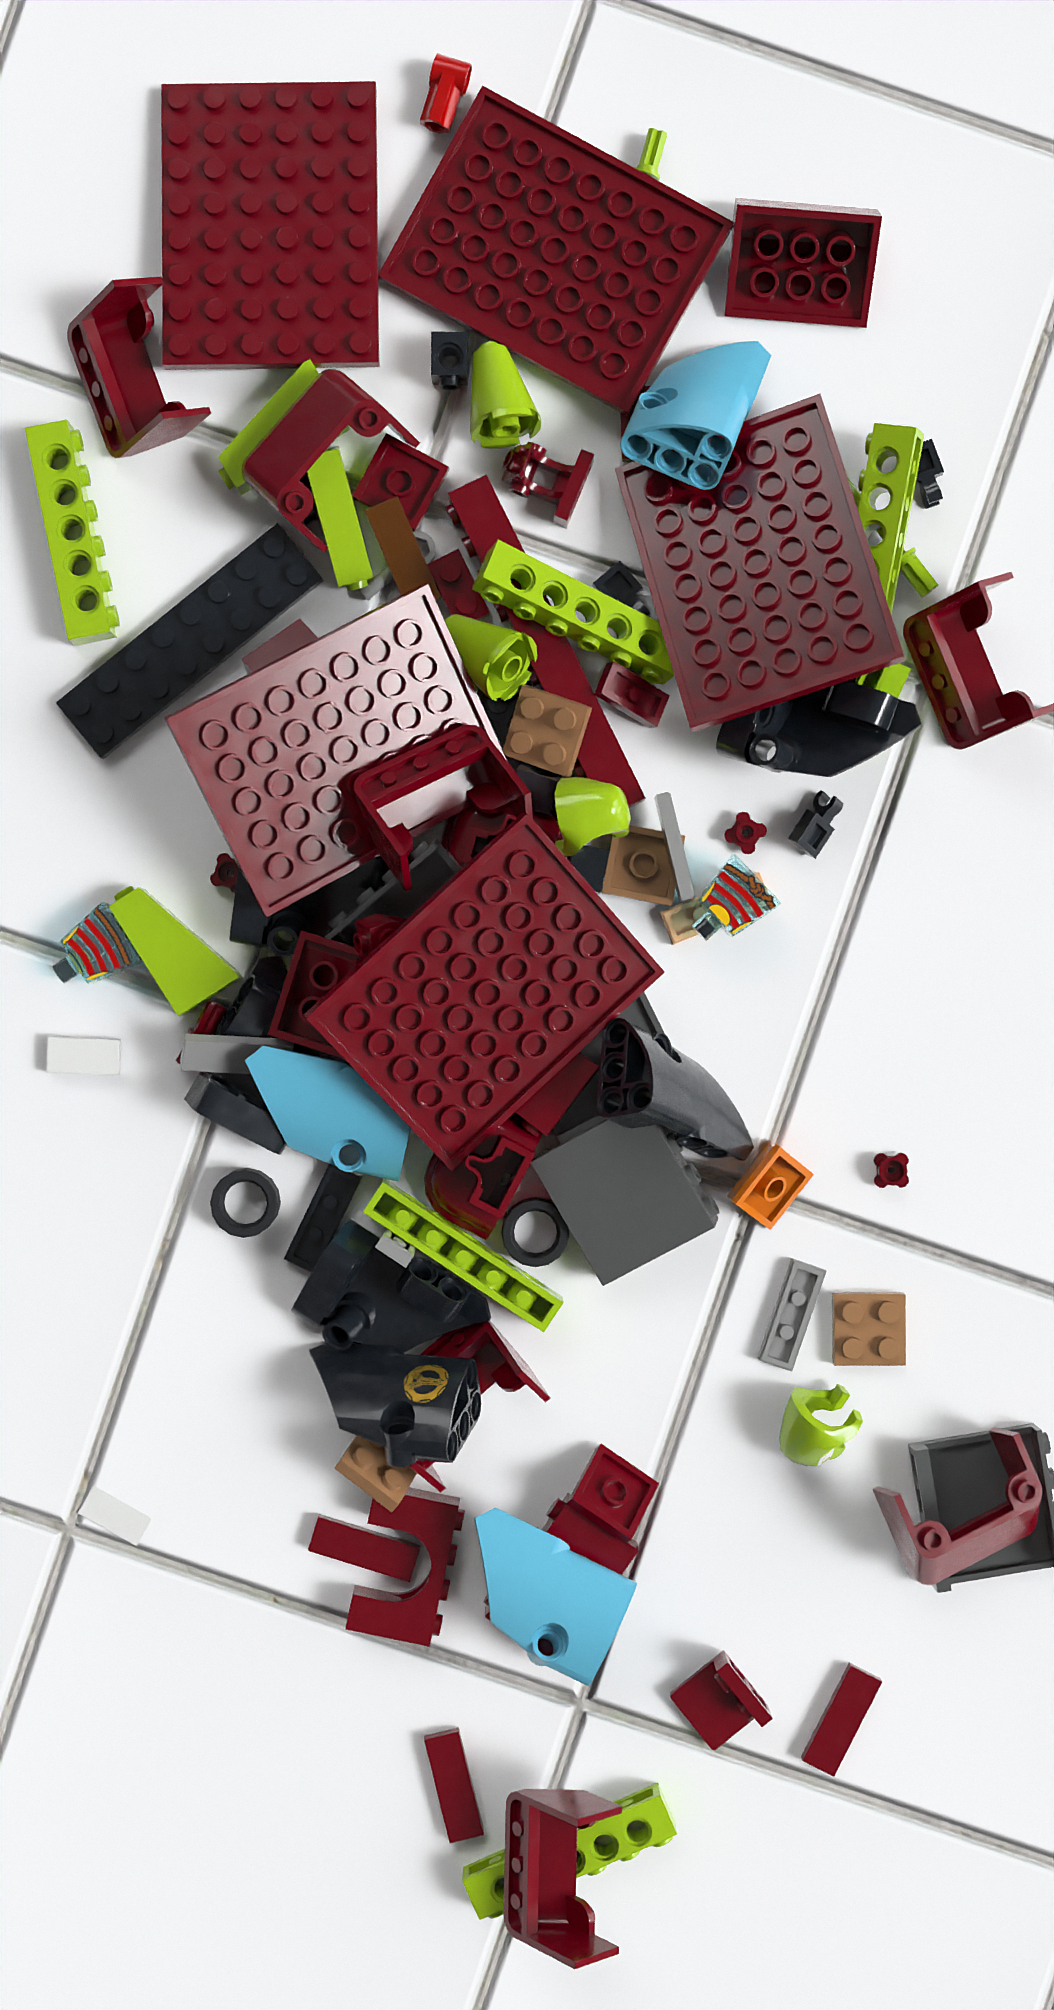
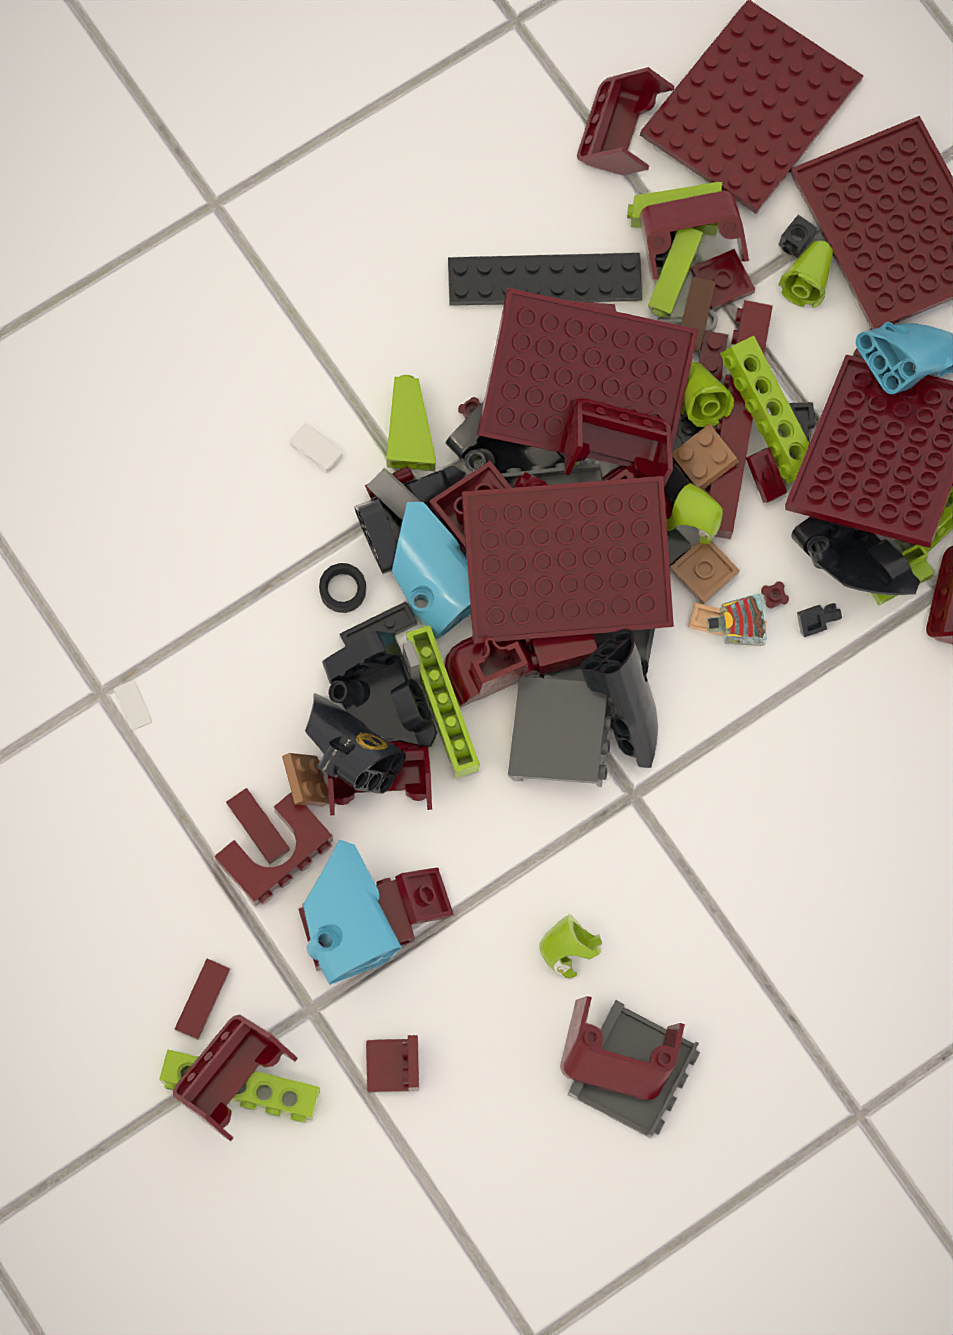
camera: 30 degrees right, 15 degrees down
(45, 445) = (547, 127): lime brick -> none
(96, 948) = (369, 396): clear light blue torso -> none
(447, 83) = (902, 102): red piece -> none
(518, 1253) = (494, 703): black tyre -> none
(520, 468) = (795, 318): dark red tile -> none
(674, 846) = (729, 568): light grey tile -> none
(770, 1185) = (644, 793): orange slope -> none
(791, 1314) = (602, 878): light grey tile -> none
(841, 1719) = (455, 1132): dark red tile -> none
(869, 1329) = (640, 919): medium nougat plate -> none
(899, 1164) = (719, 831): dark red plate -> none

